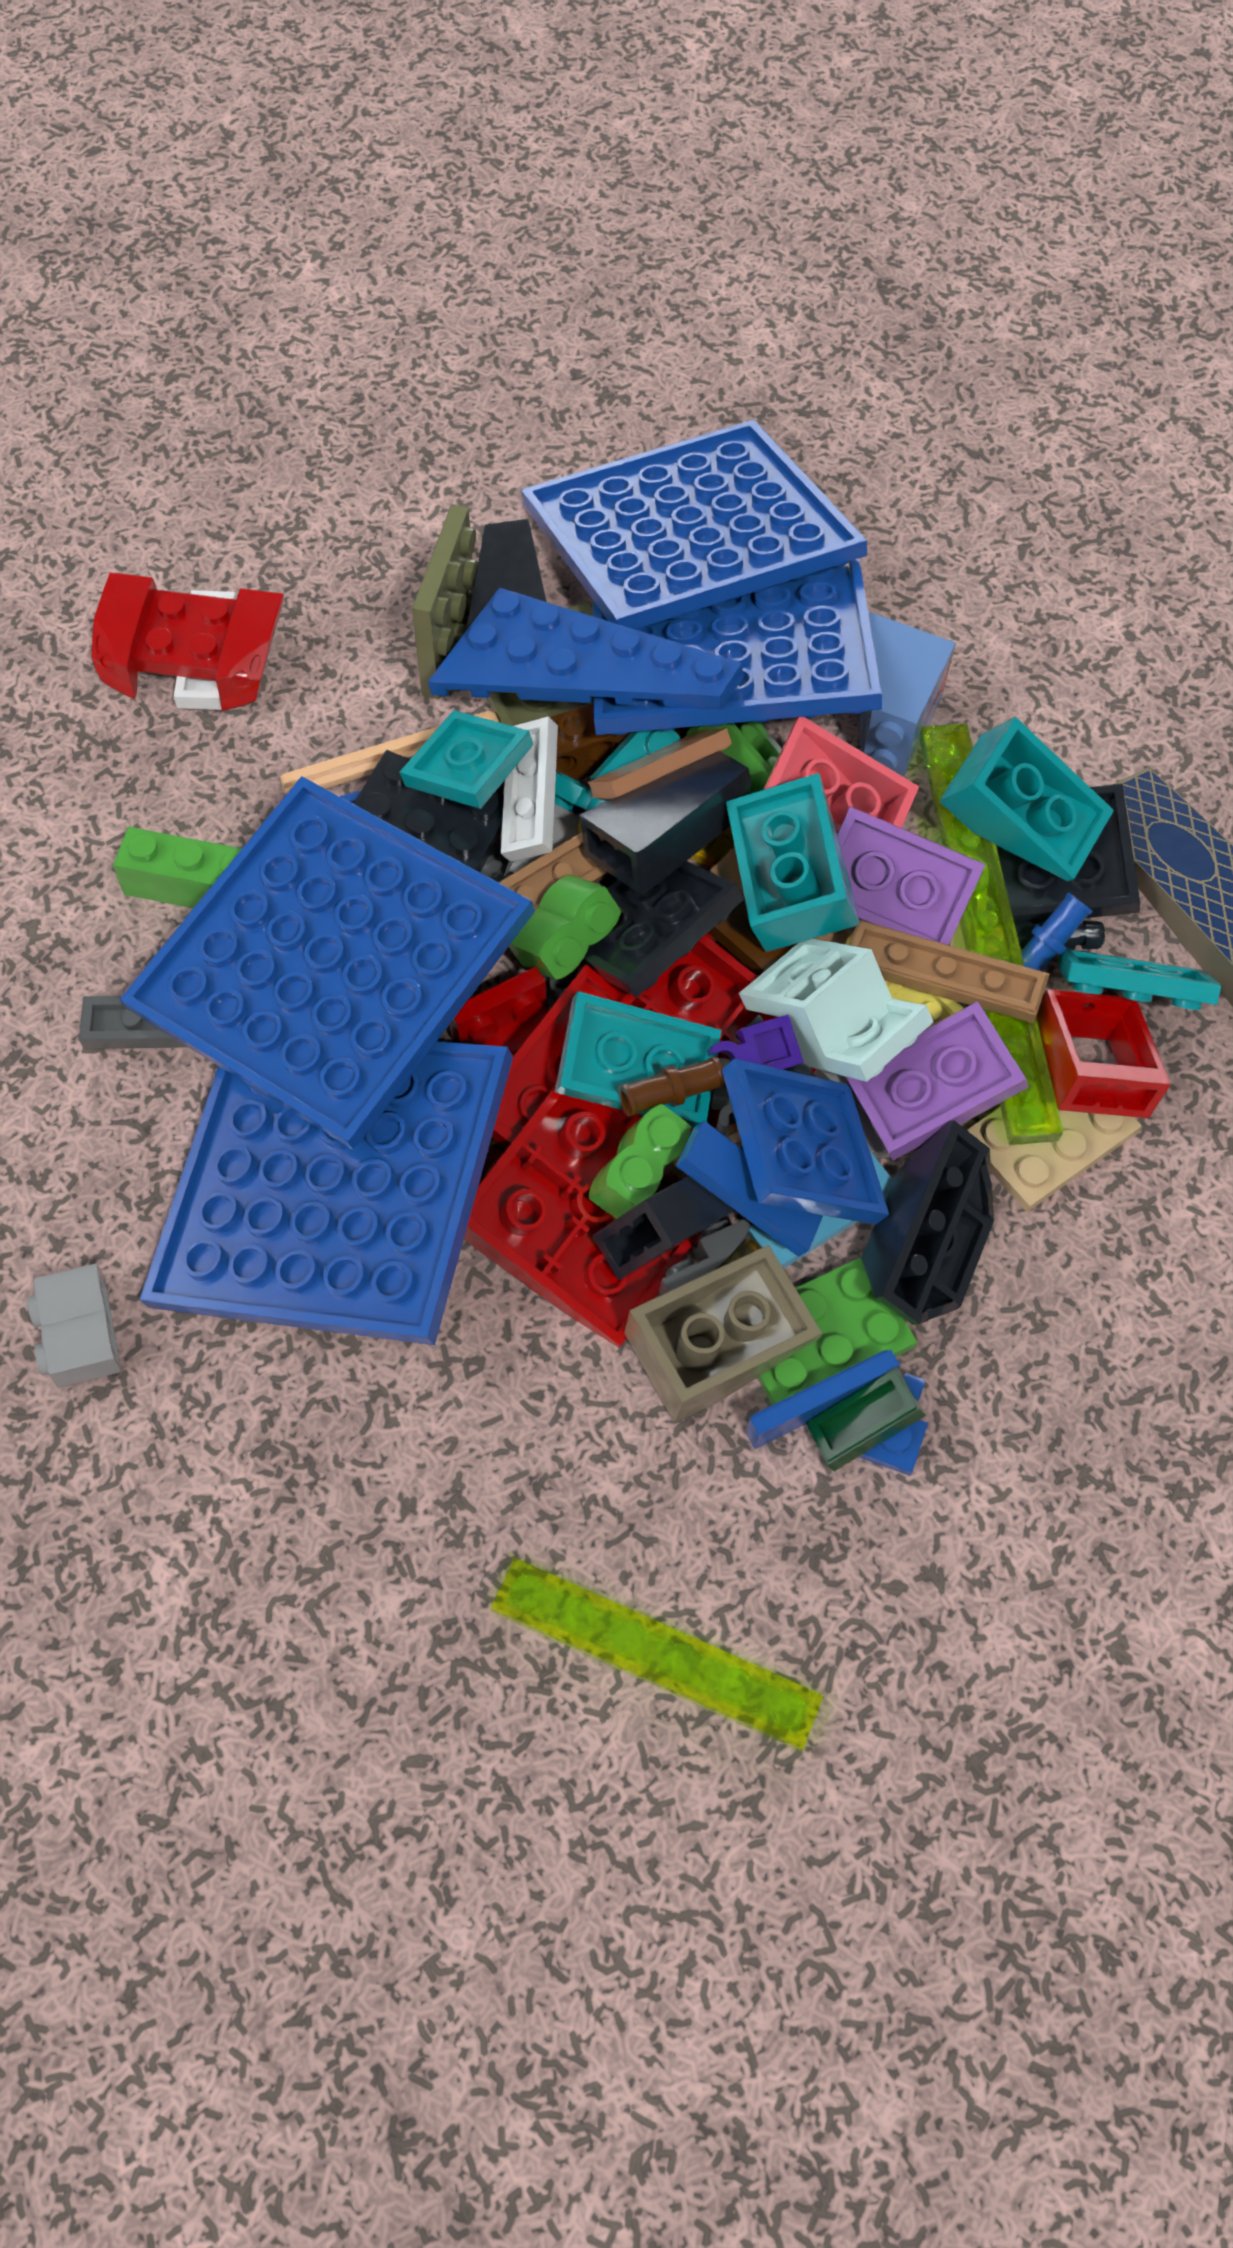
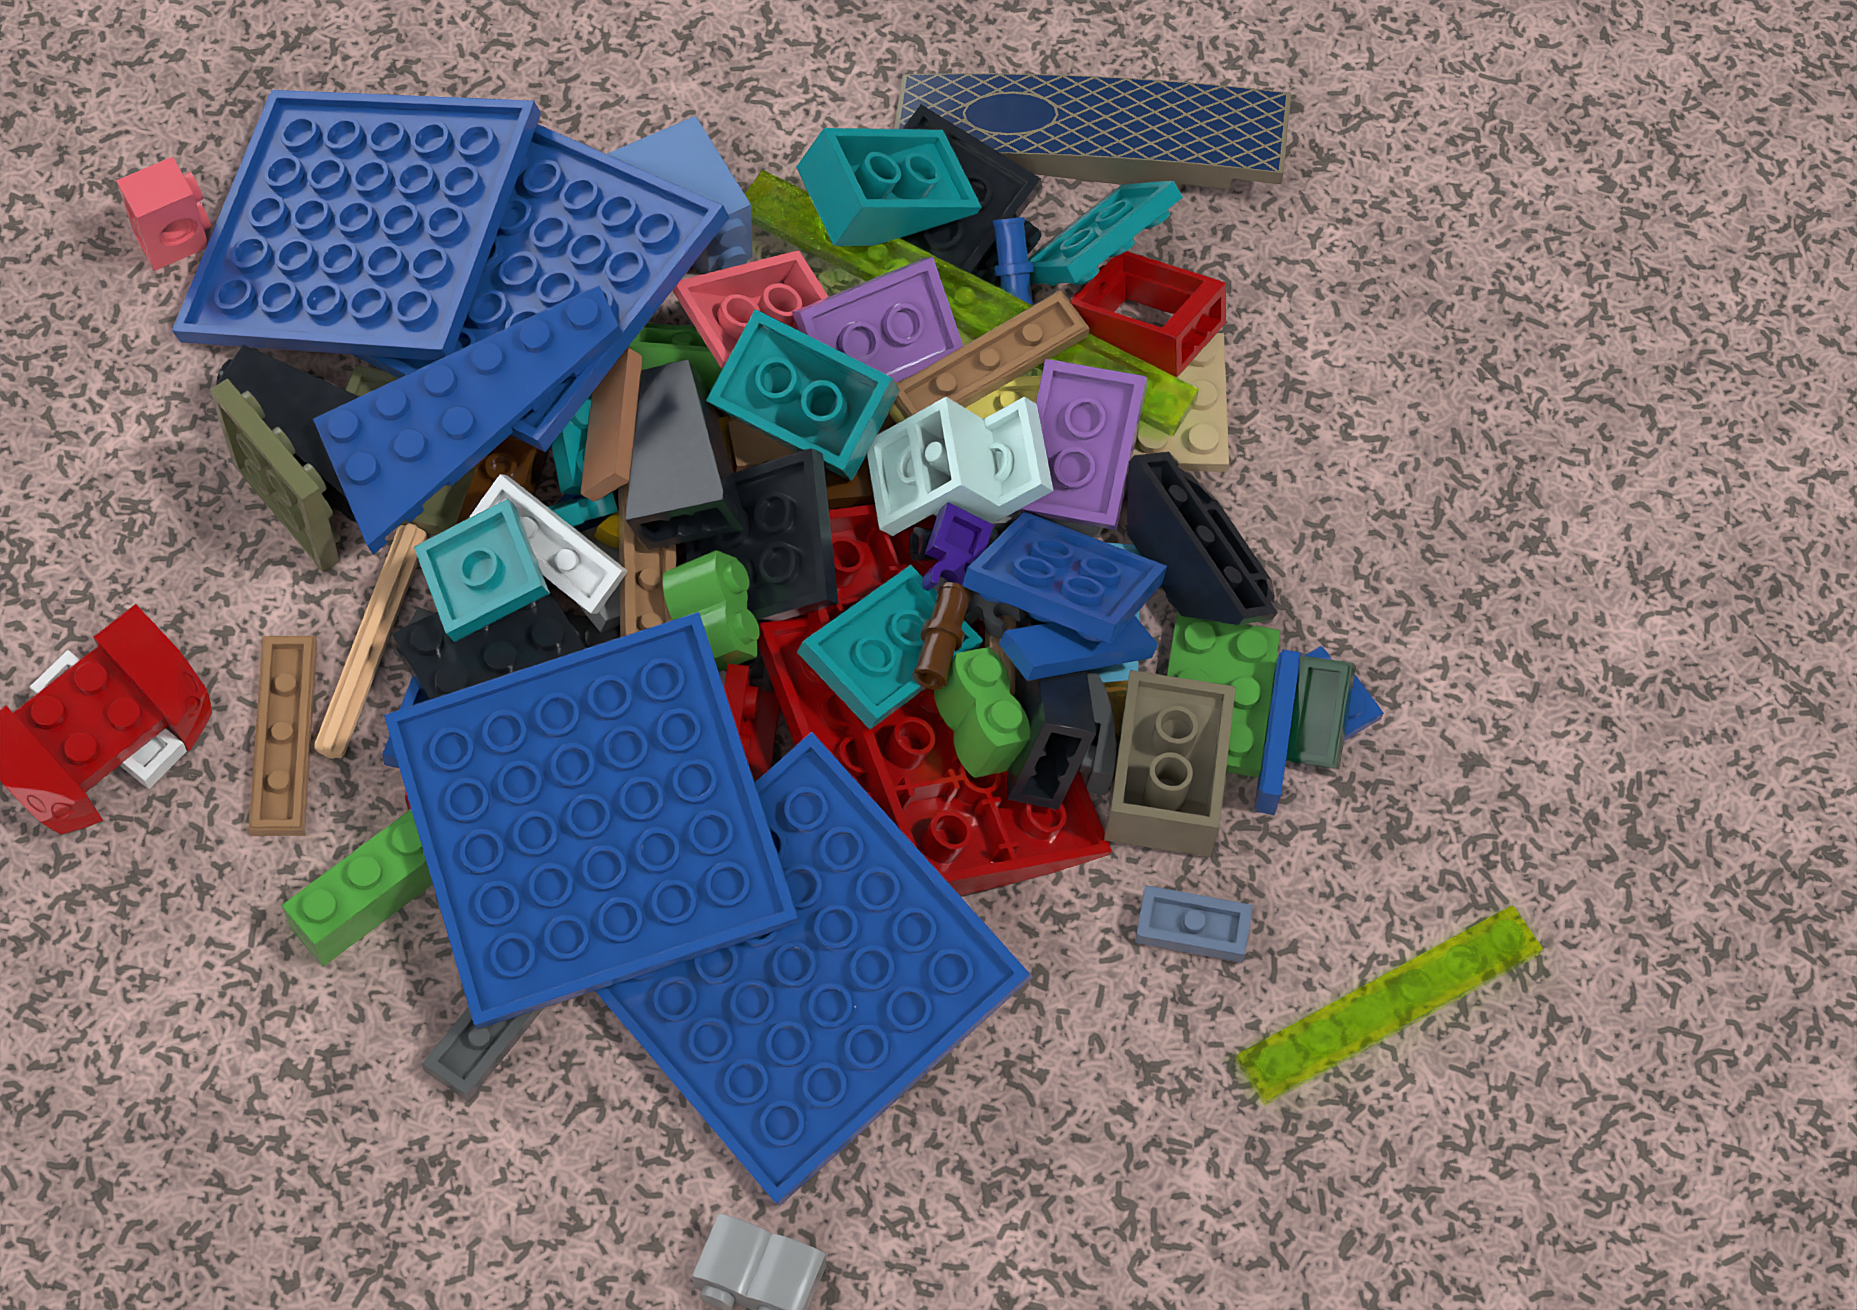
camera: 55 degrees left, 0 degrees up
(277, 753) = (283, 736): none -> medium nougat tile
(595, 419) = (165, 212): none -> coral brick
(603, 1448) = (1194, 923): none -> sand blue plate

